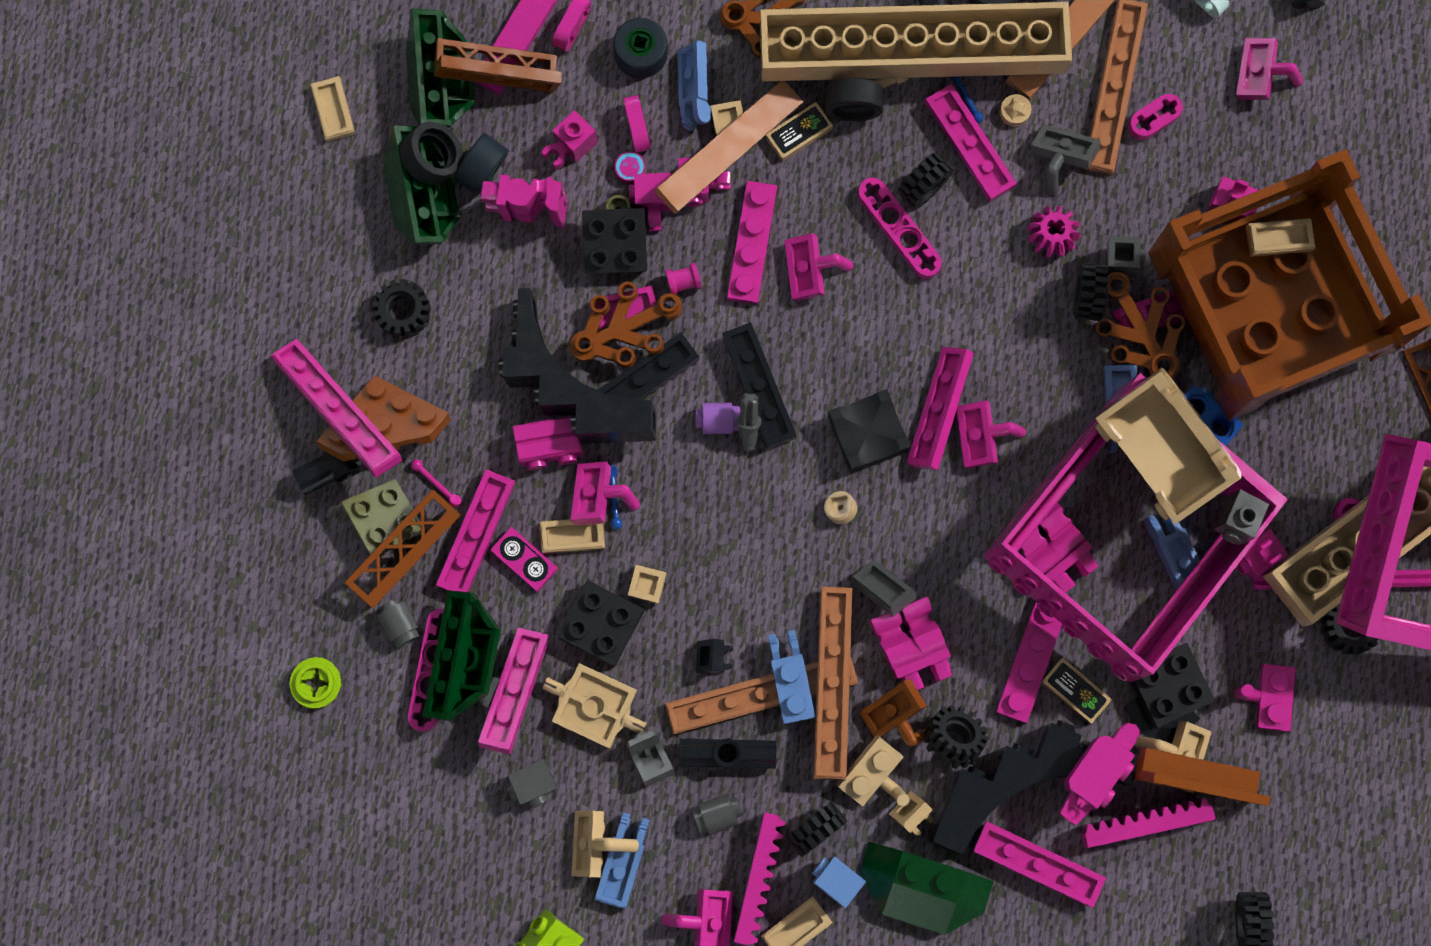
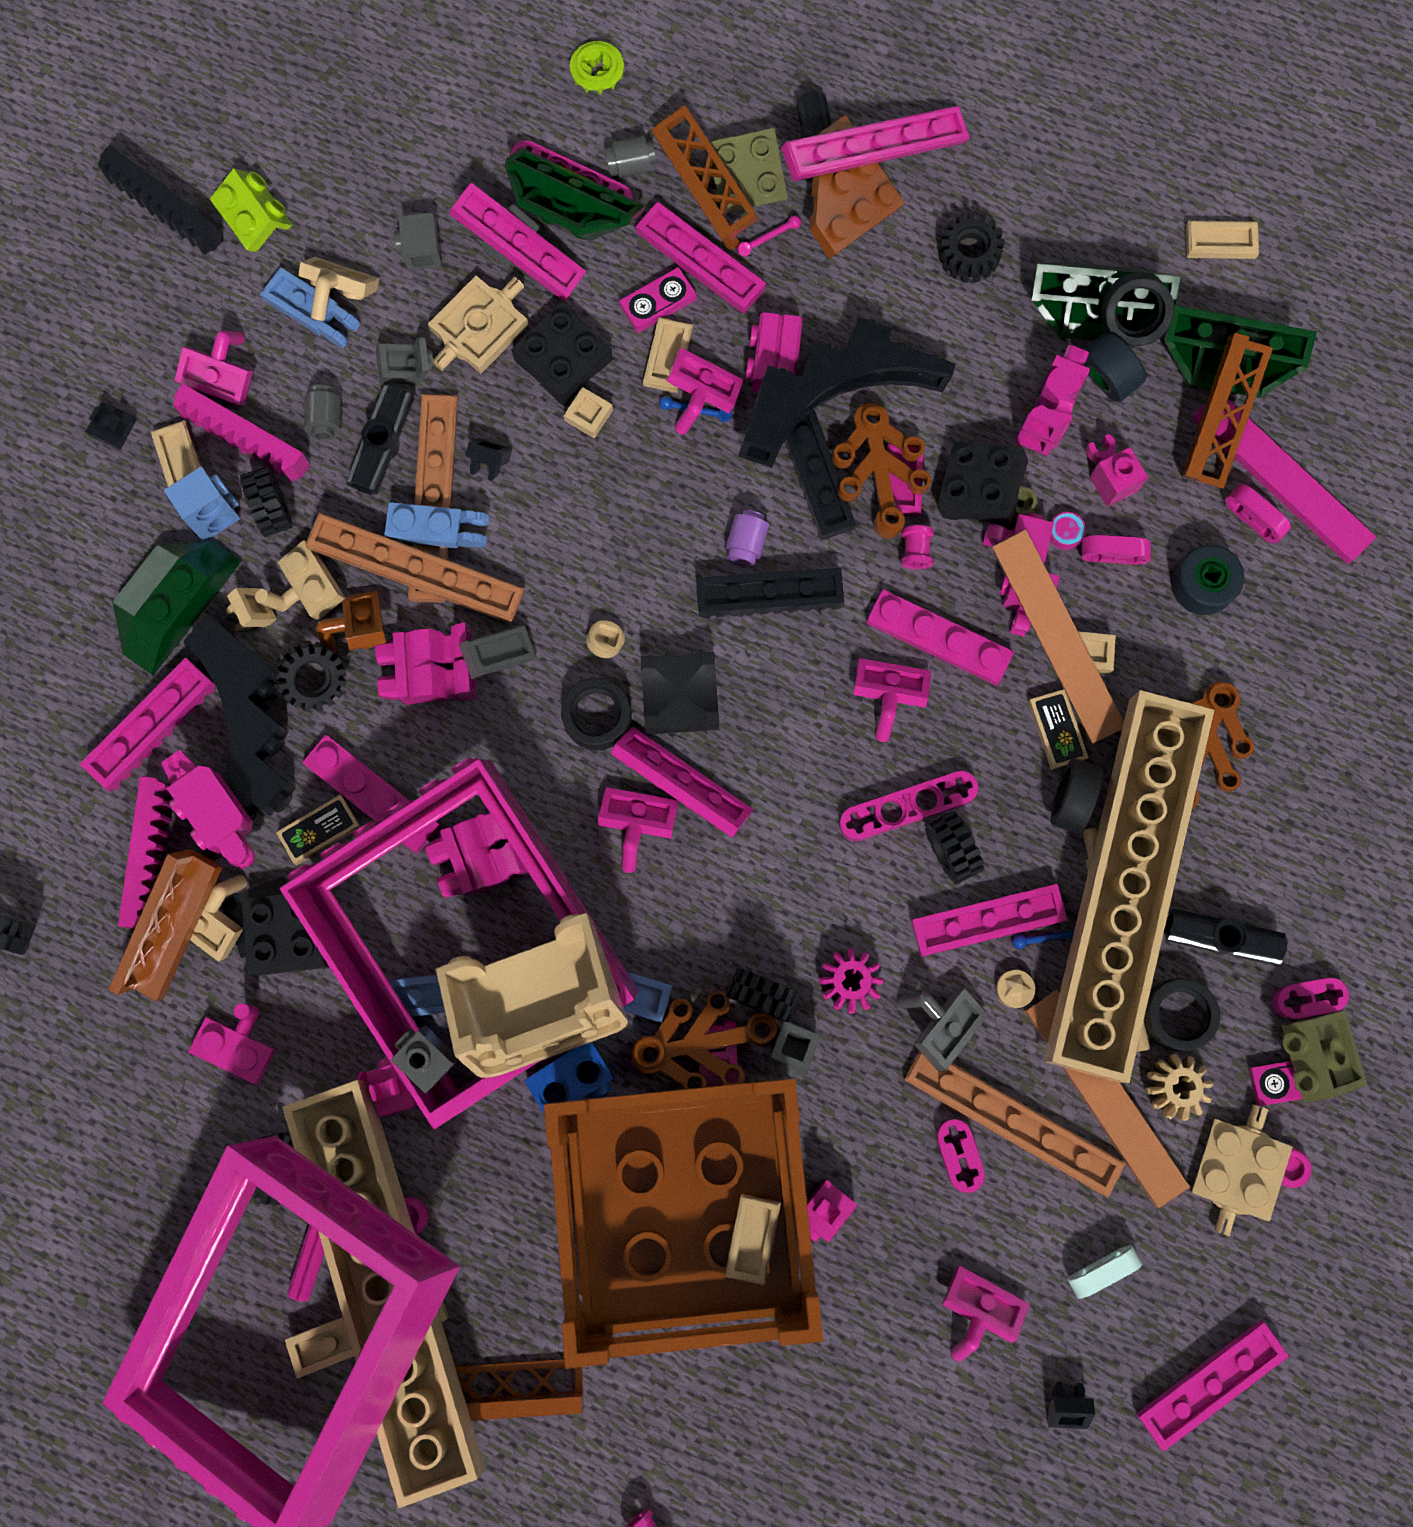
camera: 105 degrees right, 0 degrees up
(693, 85) = (1145, 624): medium blue hinge -> none
(748, 422) = (728, 562): dark grey axle -> none
(918, 473) = (588, 687): none -> black tyre

